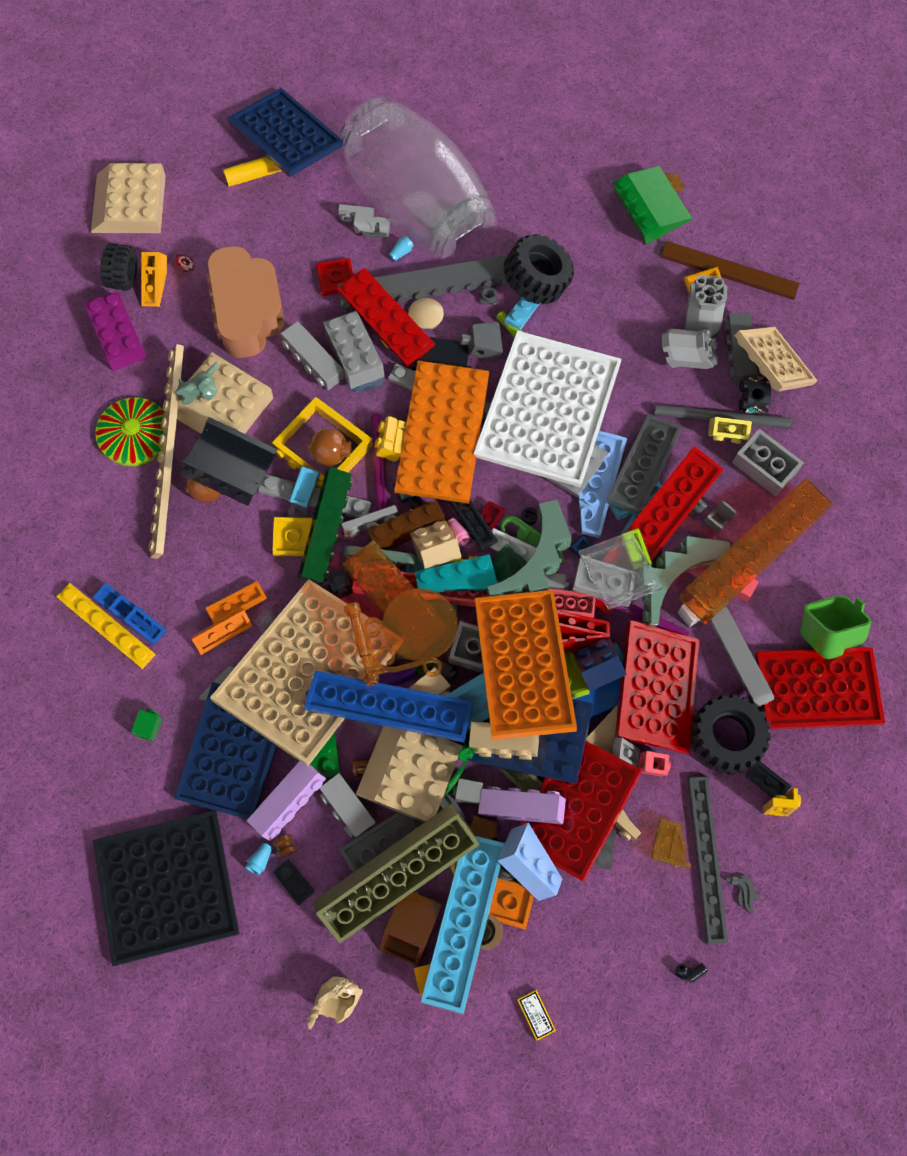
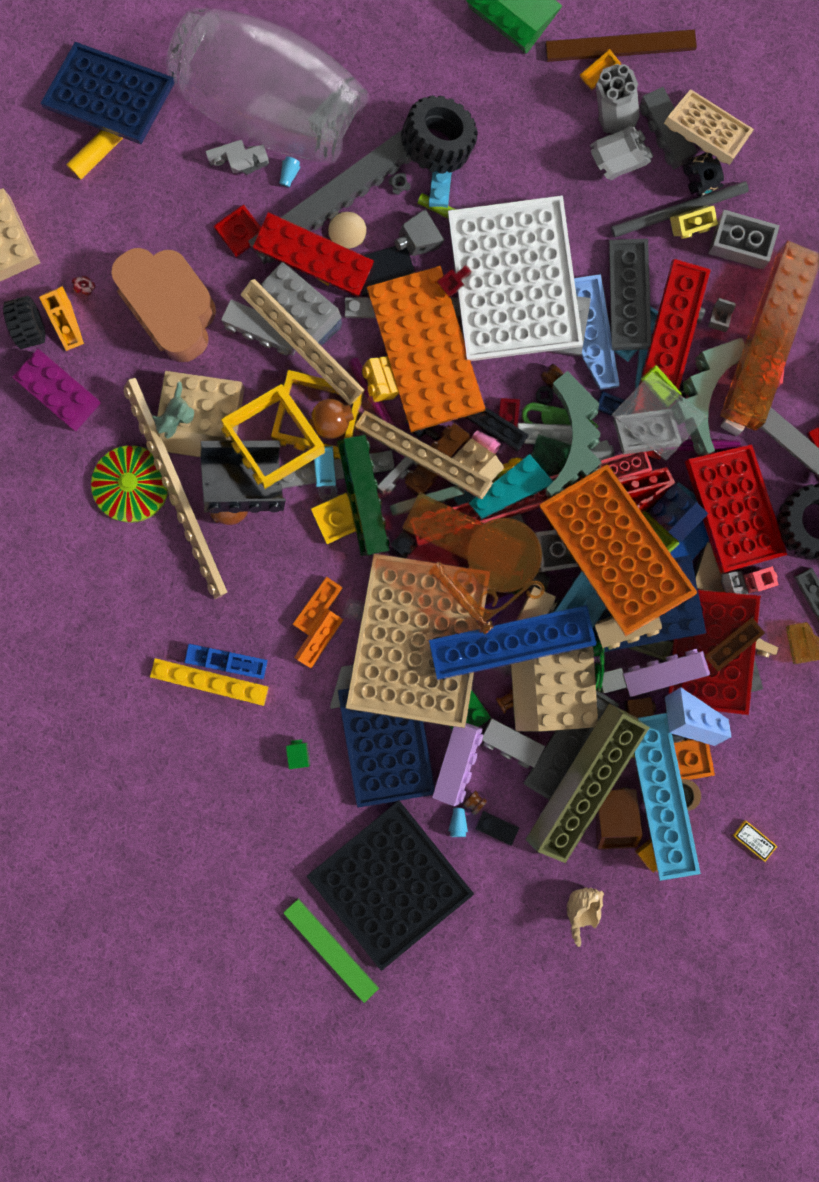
camera: 20 degrees left, 15 degrees up
(77, 925) = (331, 950): none -> bright green tile
(266, 411) = (256, 406): none -> yellow window
(338, 378) = (302, 341): none -> tan plate
(395, 513) = (424, 454): none -> tan plate
(491, 385) = (452, 281): none -> dark red plate
(542, 499) = (551, 375): none -> reddish brown wheel
(597, 804) = (735, 644): none -> reddish brown plate

